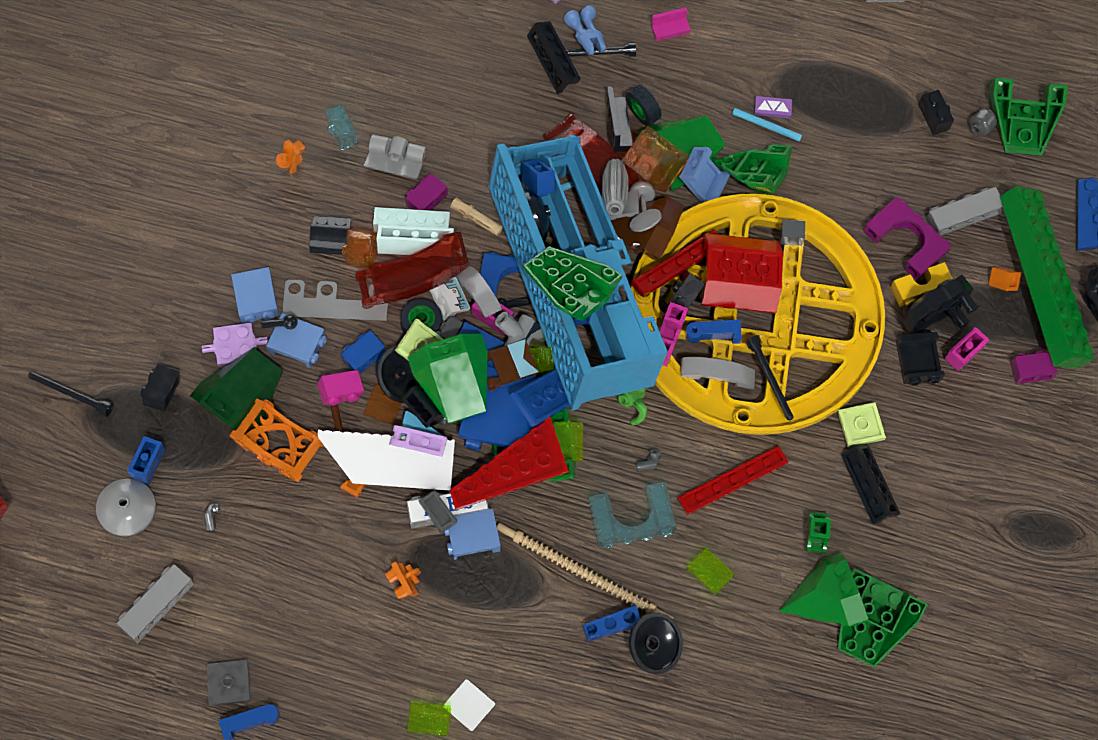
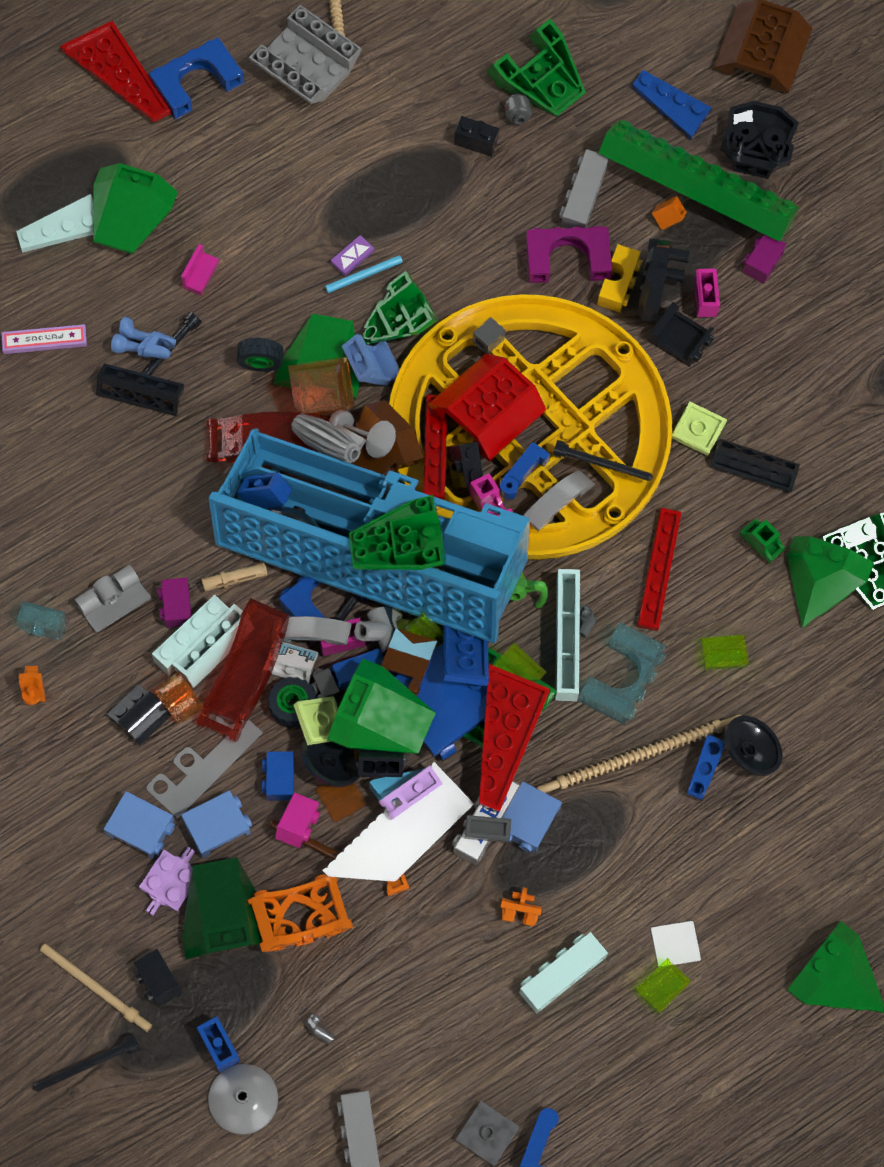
camera: 50 degrees left, 0 degrees up
(125, 391) = (129, 1013): none -> tan bar
(289, 322) = (196, 815): black bar -> none
(381, 643) = (563, 972): none -> light aqua brick
(619, 122) = (256, 387): fence -> none
(625, 455) = (567, 635): none -> light aqua brick

